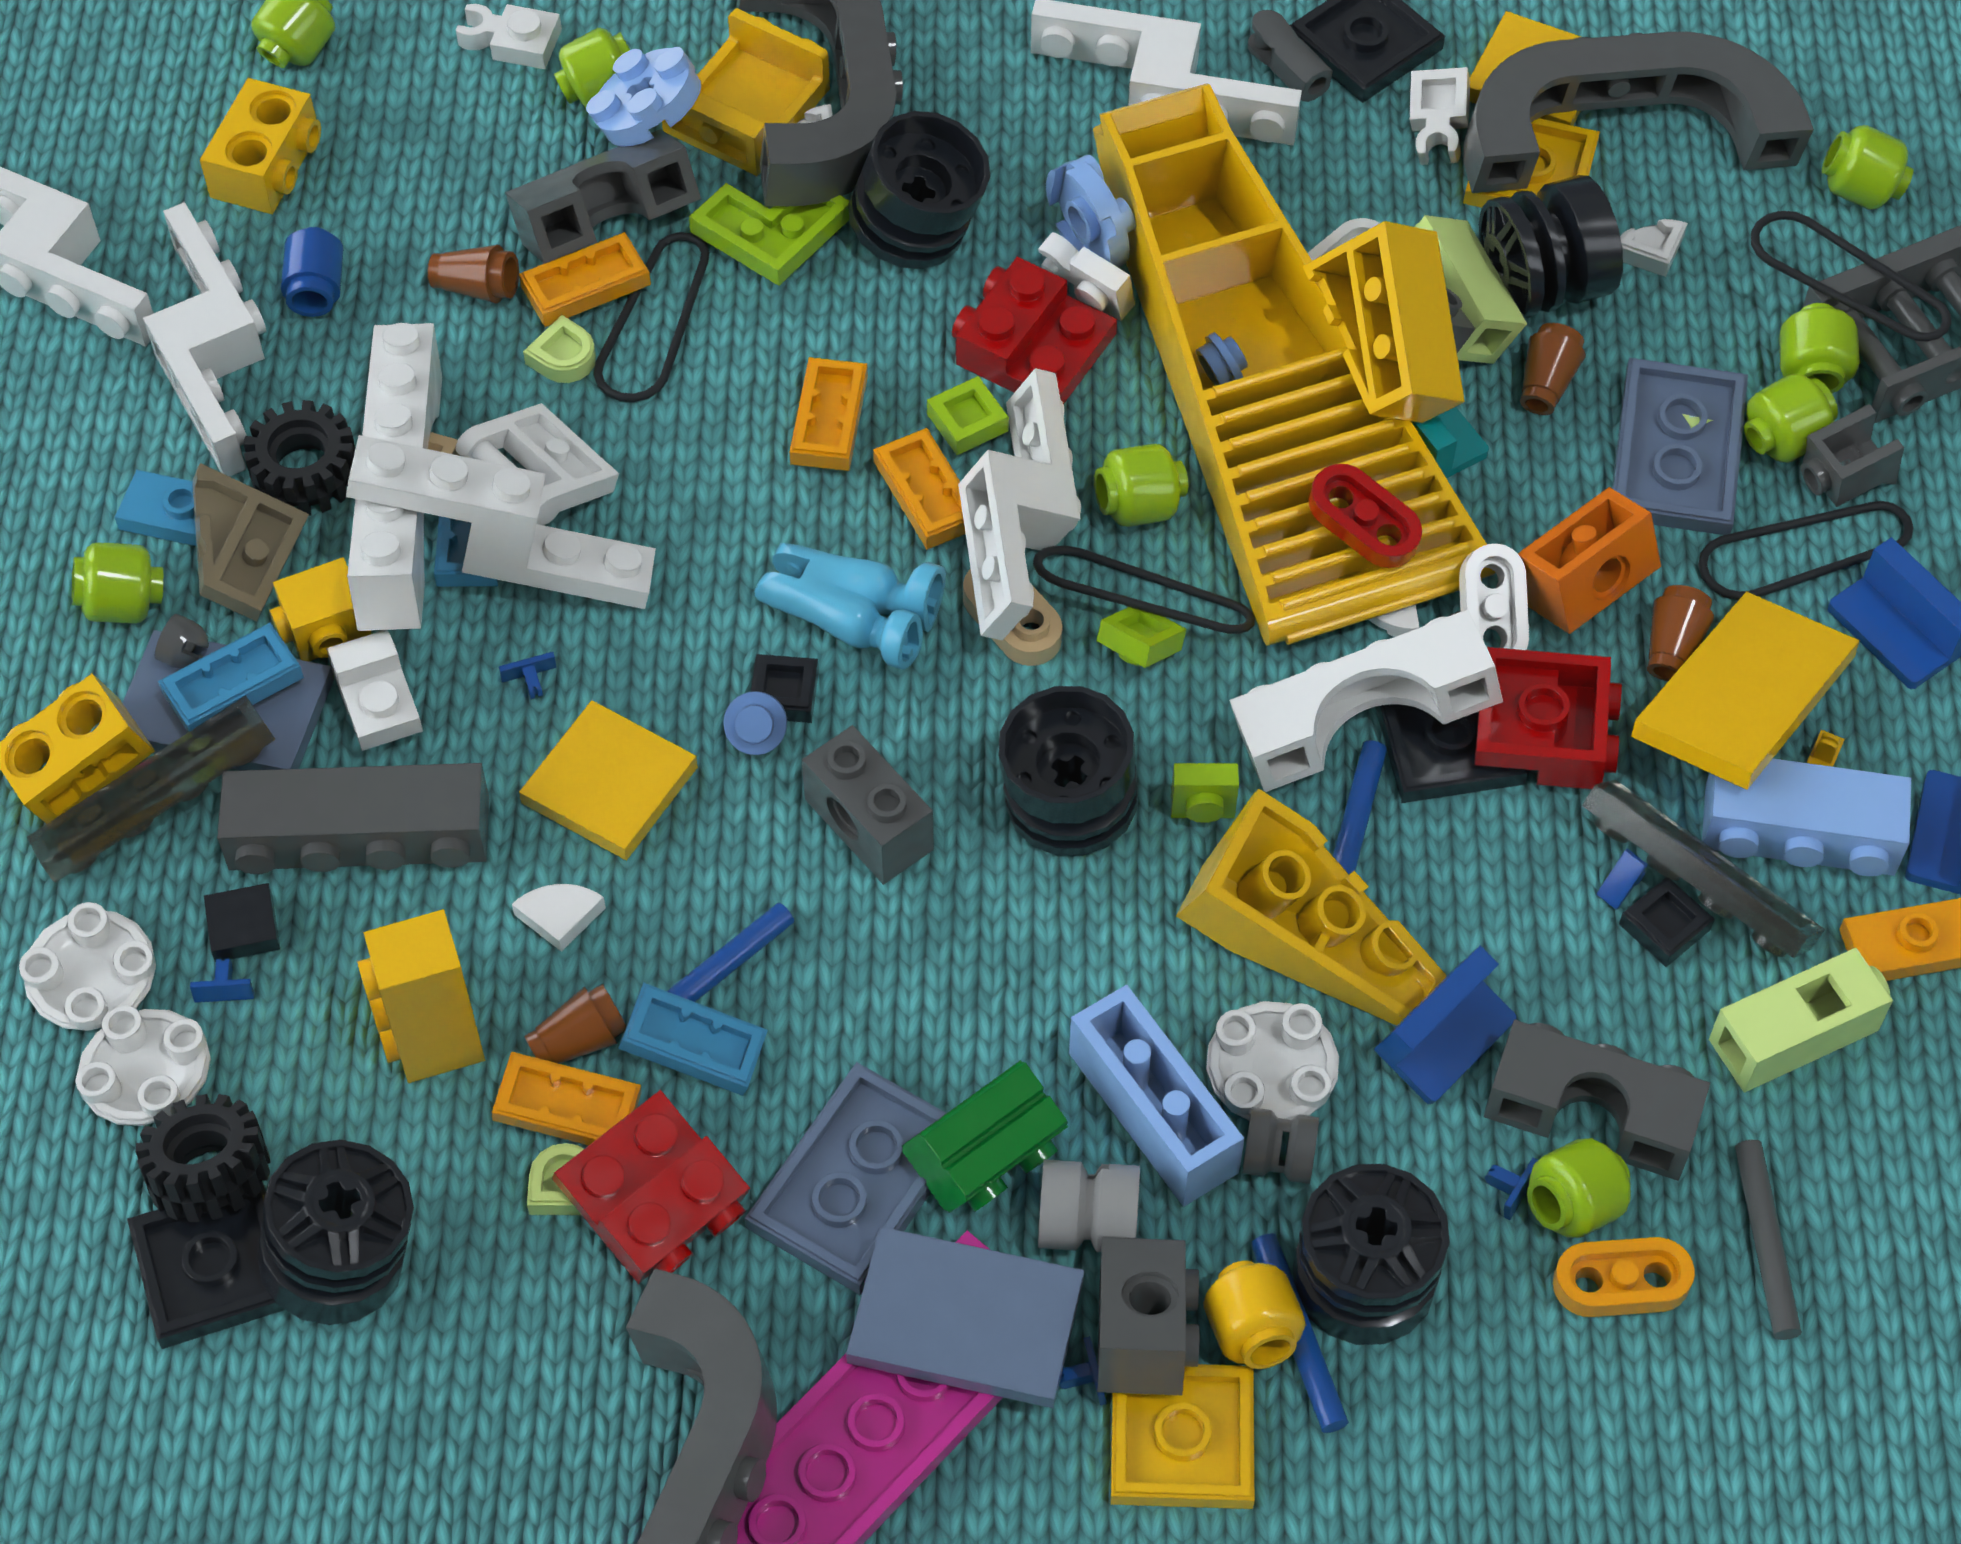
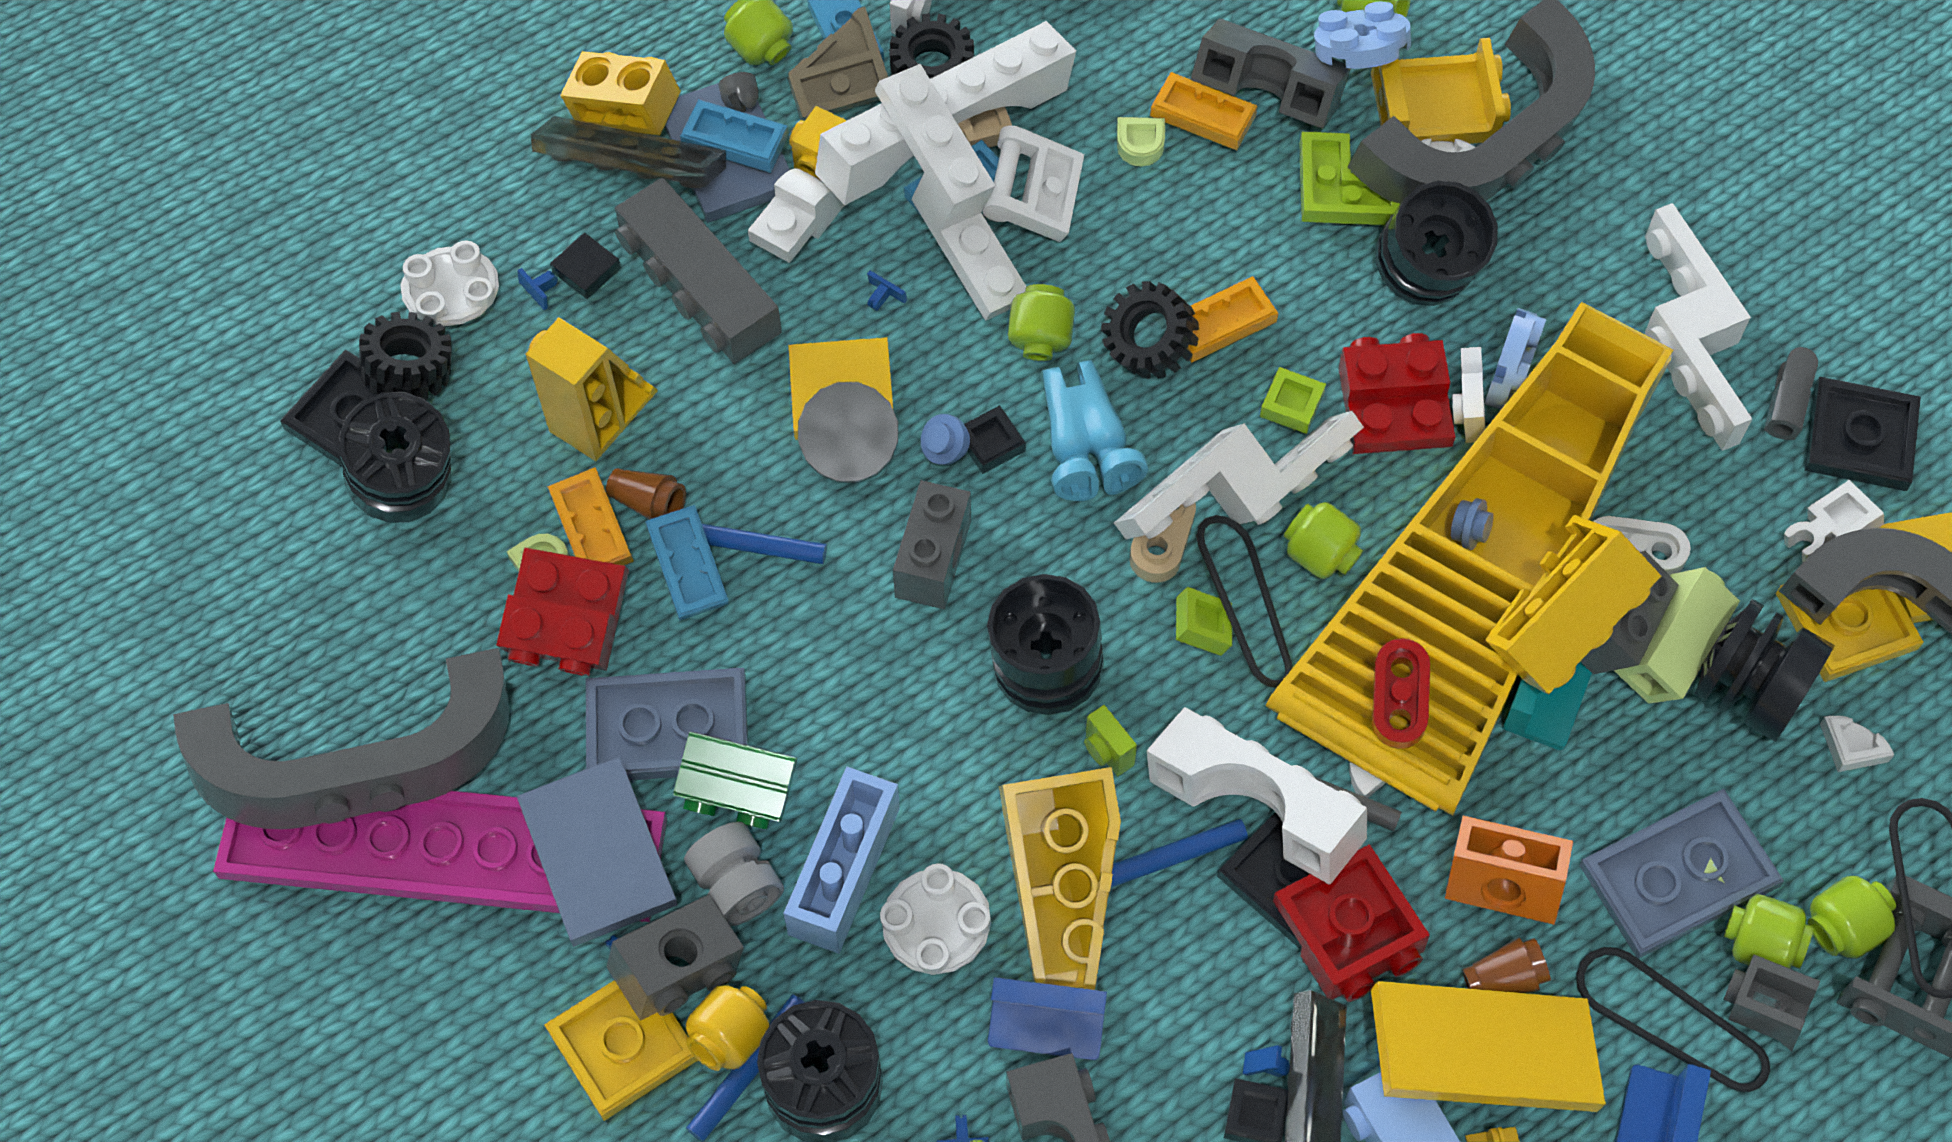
camera: 55 degrees right, 5 degrees up
(87, 967) = (492, 210): white dish -> none
(476, 272) = (1153, 49): dark orange cone -> none
(559, 911) = (724, 427): white tile -> none
(634, 397) = (1218, 192): black piece -> none
(674, 799) = (848, 432): none -> tile
(699, 557) = (1041, 322): none -> lime head
(784, 437) = (1128, 315): none -> black tyre
(923, 486) = (1215, 407): light orange plate -> none
(1265, 1142) = (871, 965): dark grey wheel -> none
(1497, 608) = (1416, 830): white plate -> none
(1550, 366) = (1669, 741): dark orange cone -> none

